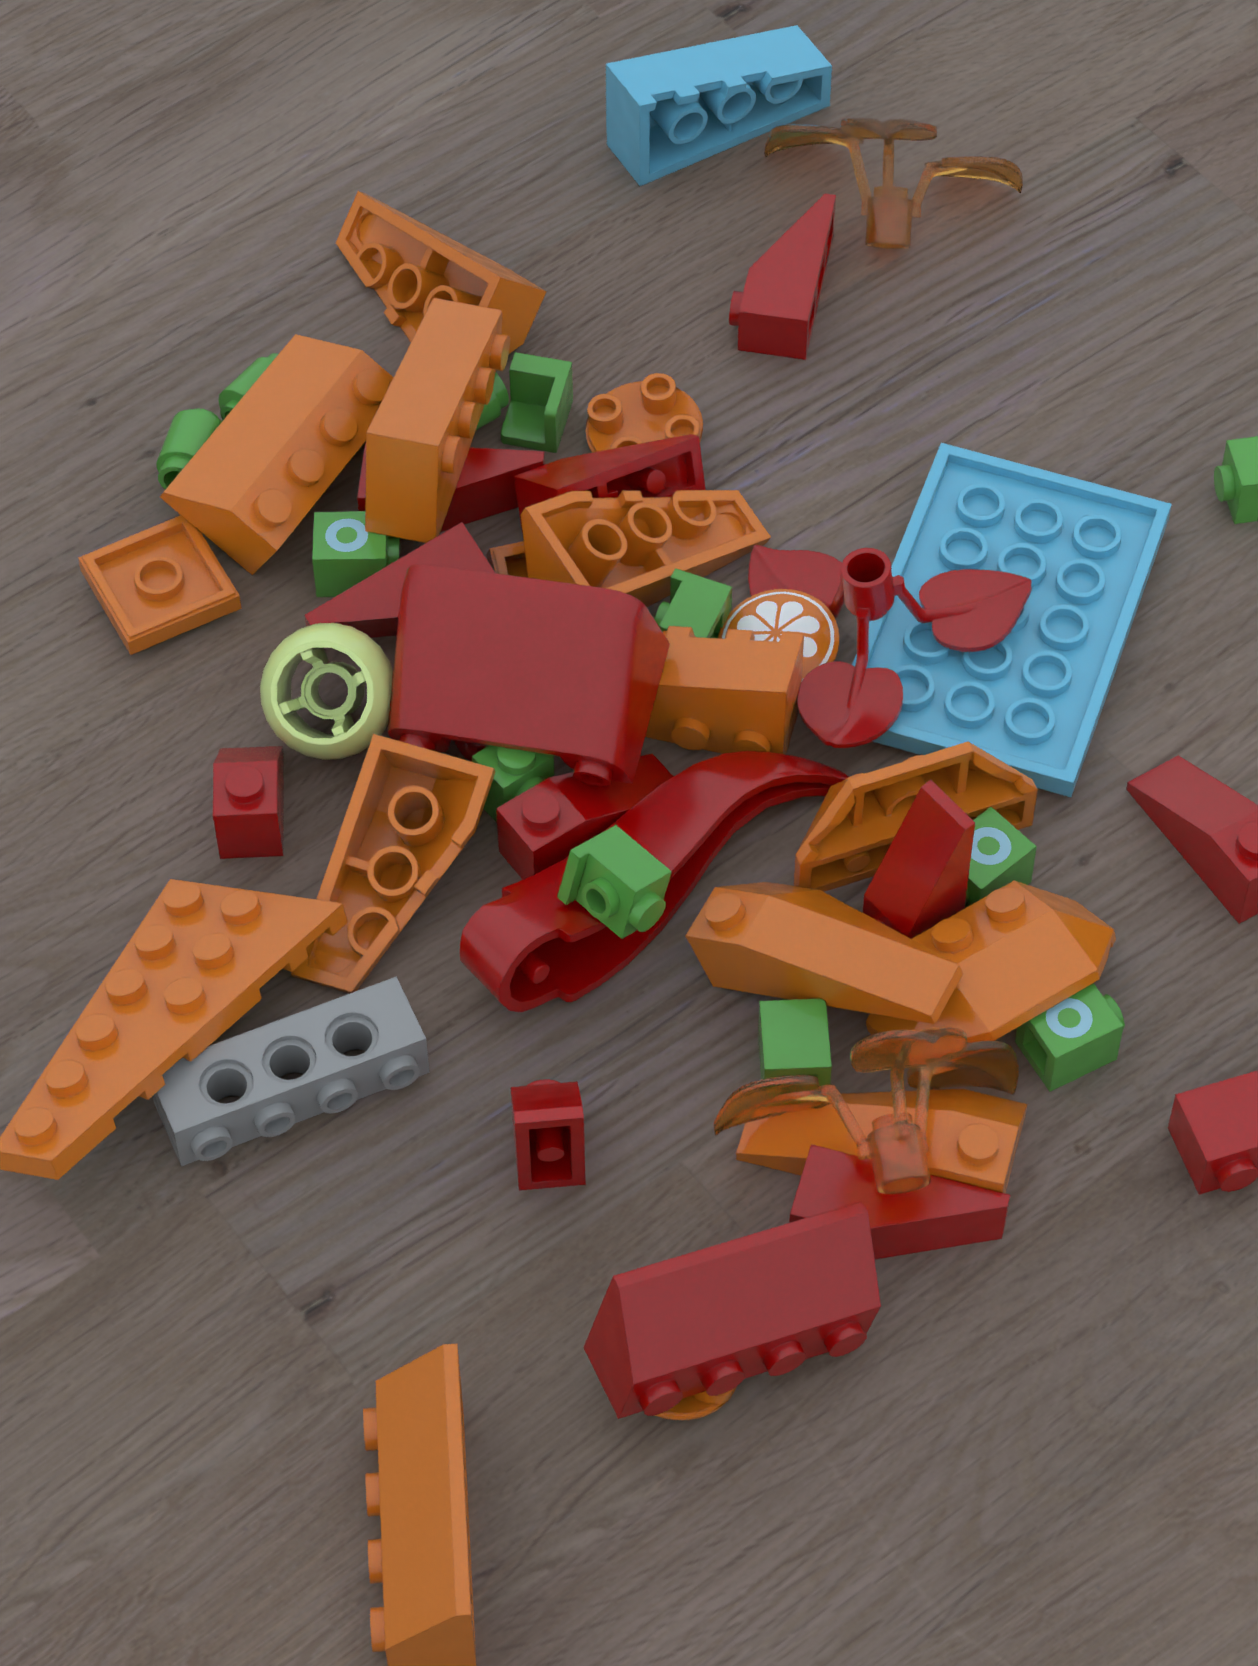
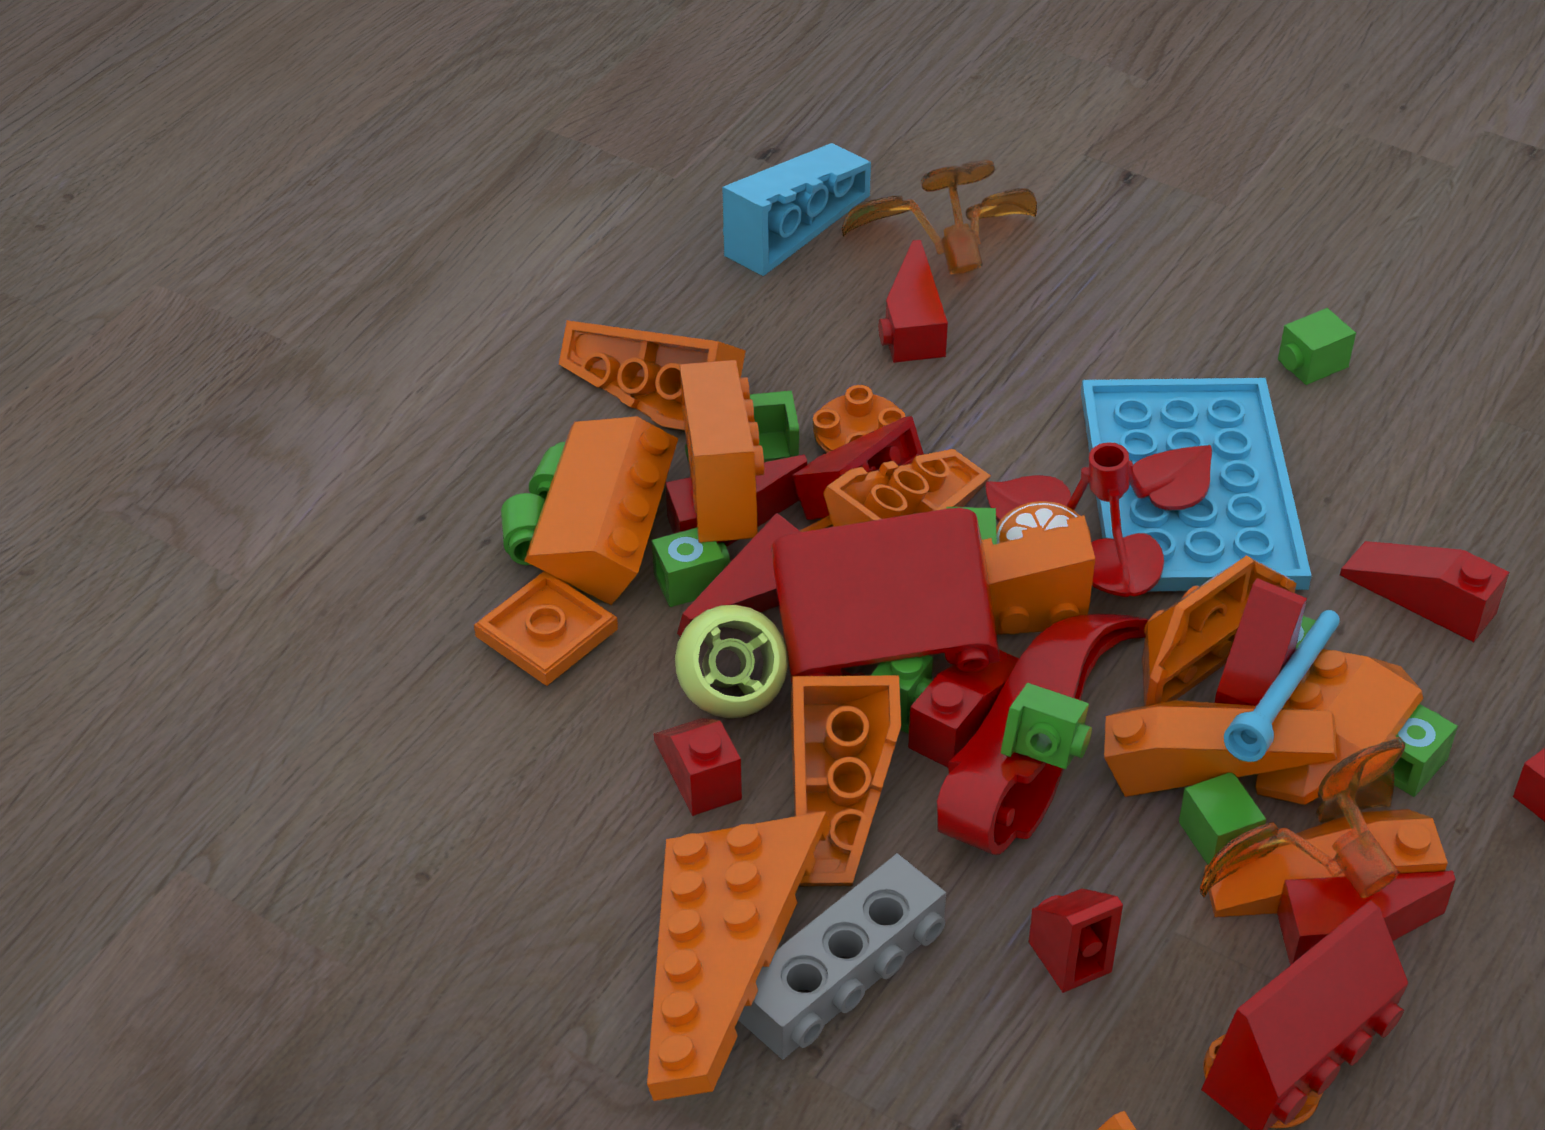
camera: 20 degrees left, 10 degrees down
(838, 963) = (1252, 731): none -> medium azure piece

